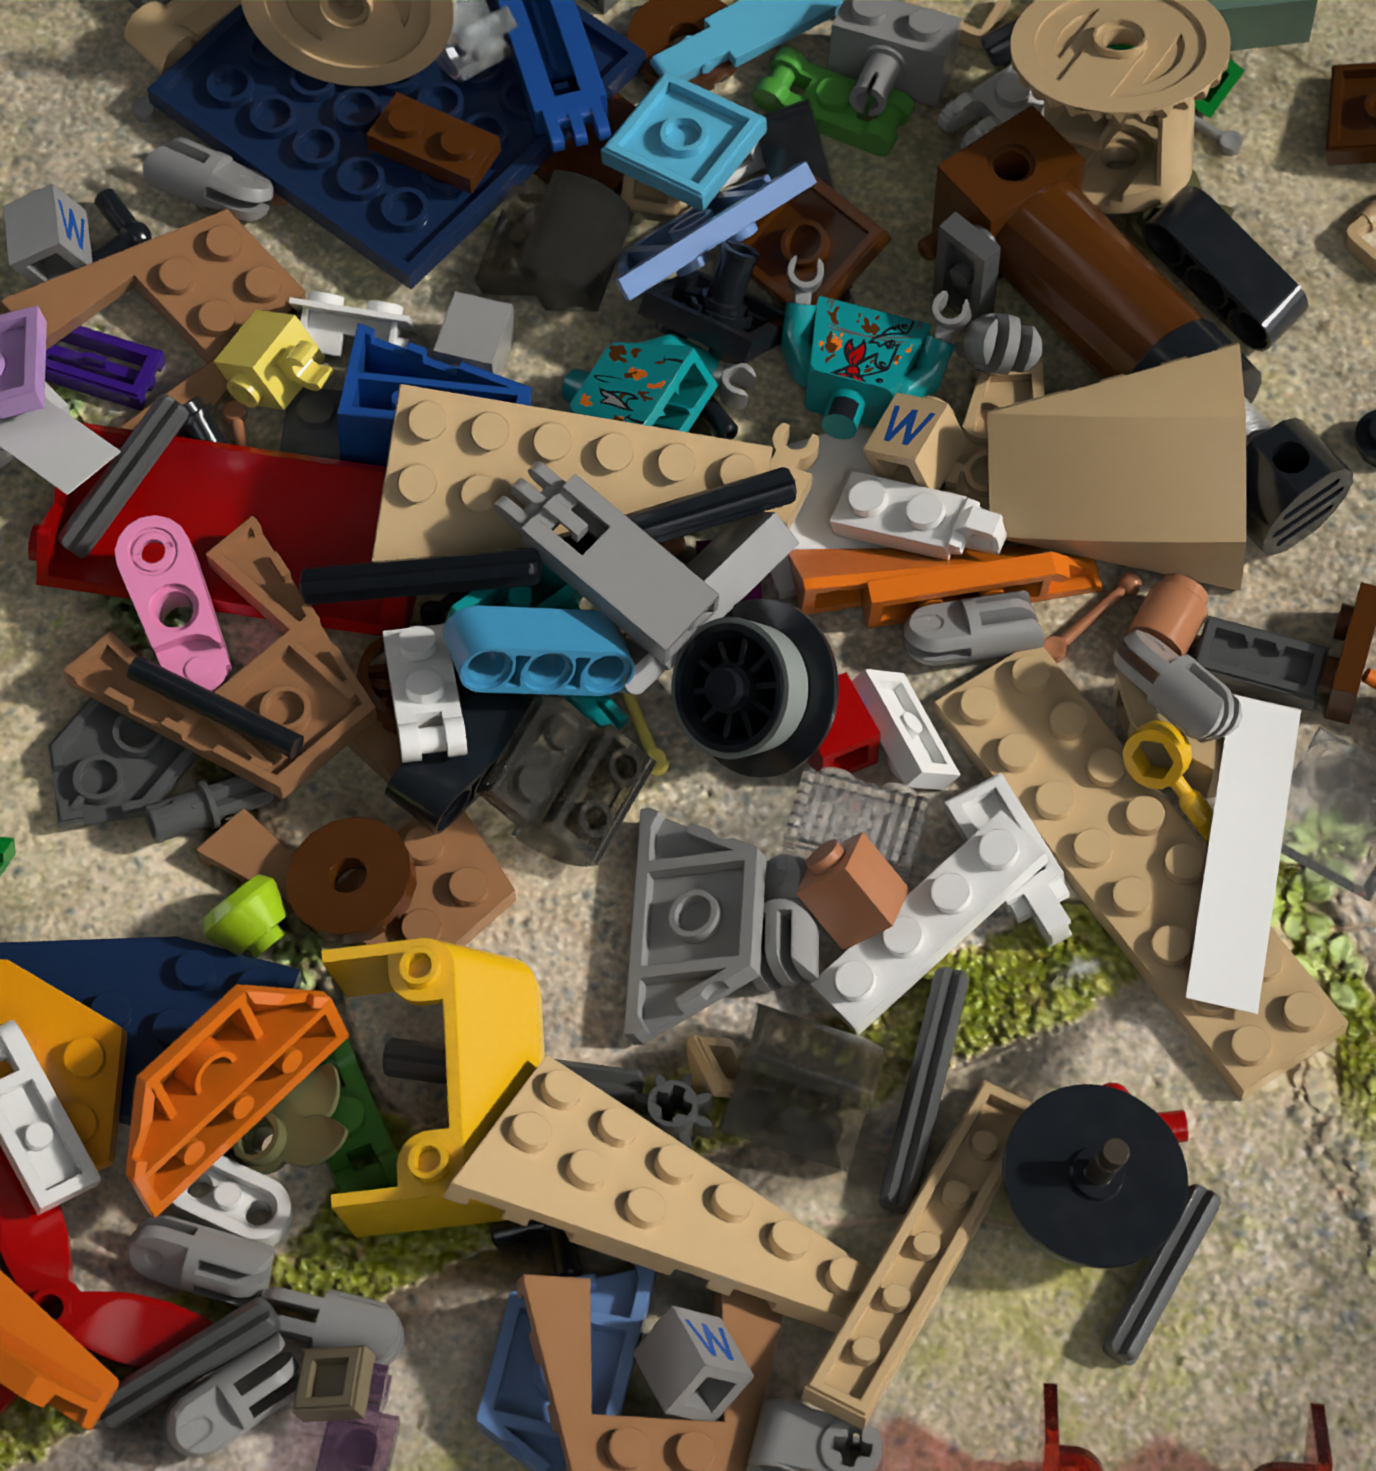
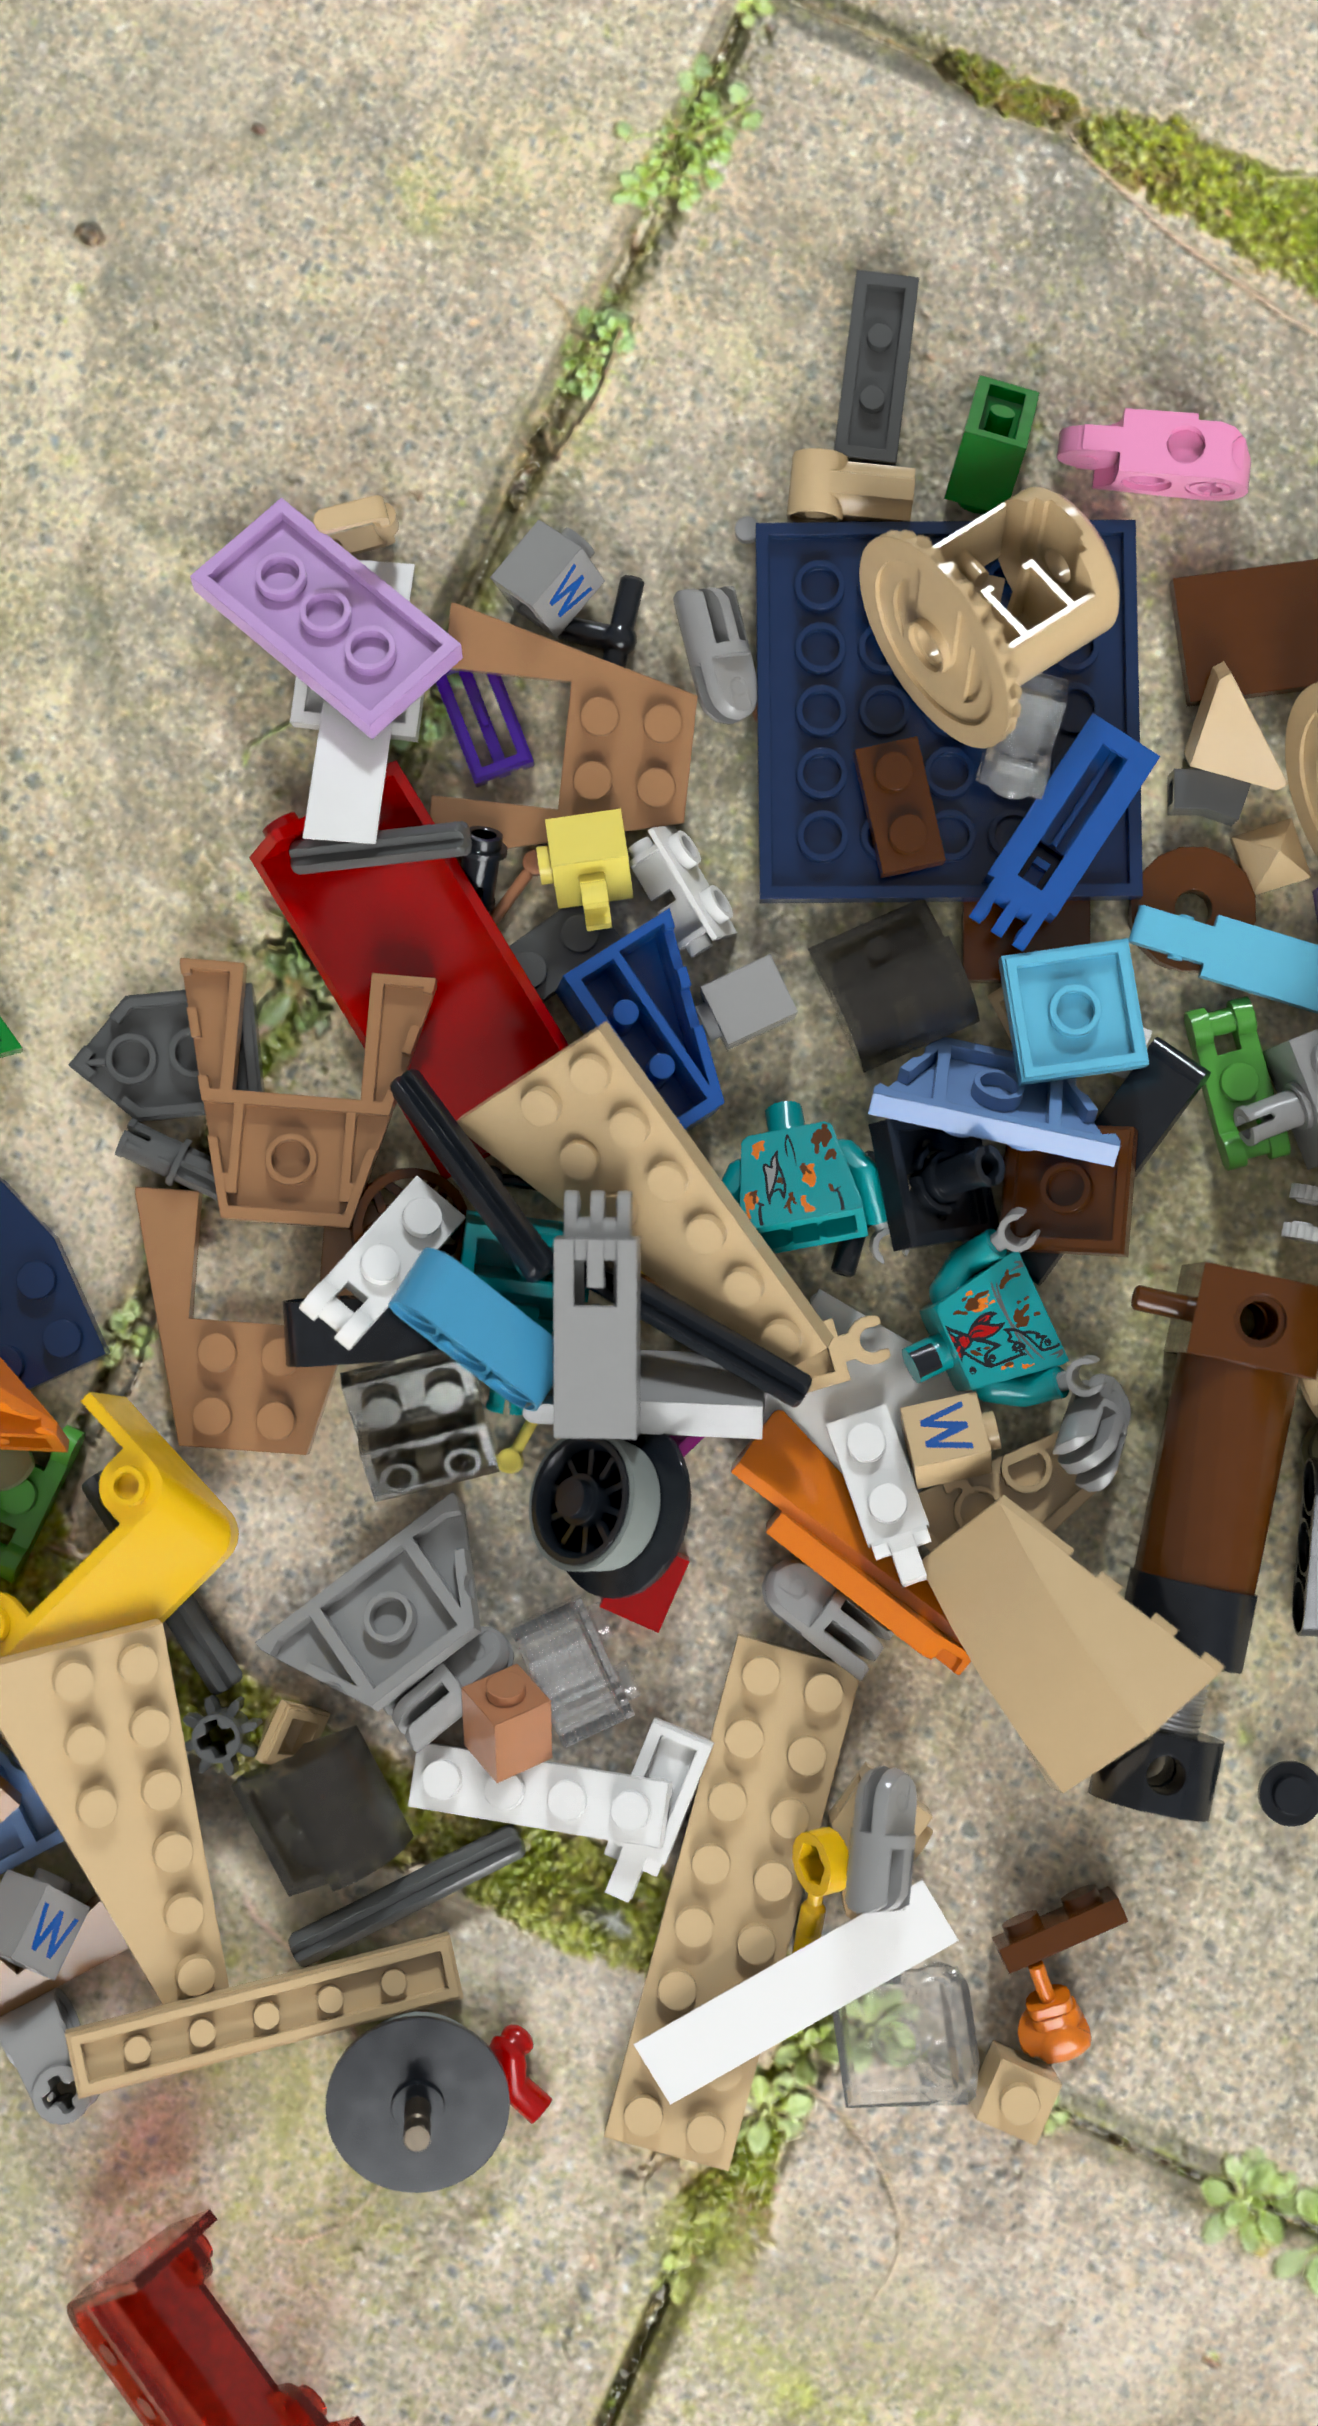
camera: 50 degrees right, 25 degrees up
(175, 581) = (277, 1044): bright pink piece -> none
(215, 707) = (240, 1109): black bar -> none
(247, 917) = (108, 1279): lime cone -> none
(331, 853) = (161, 1325): reddish brown tile -> none
(907, 734) = (691, 1635): white plate -> none
(966, 265) = (1149, 1346): dark grey plate -> none
(1128, 585) = (874, 1684): nougat hinge -> none
(1160, 1278) = (365, 2199): dark grey axle -> none
(1172, 612) = (962, 1760): nougat brick -> none
(1262, 662) = (989, 1858): dark grey plate -> none

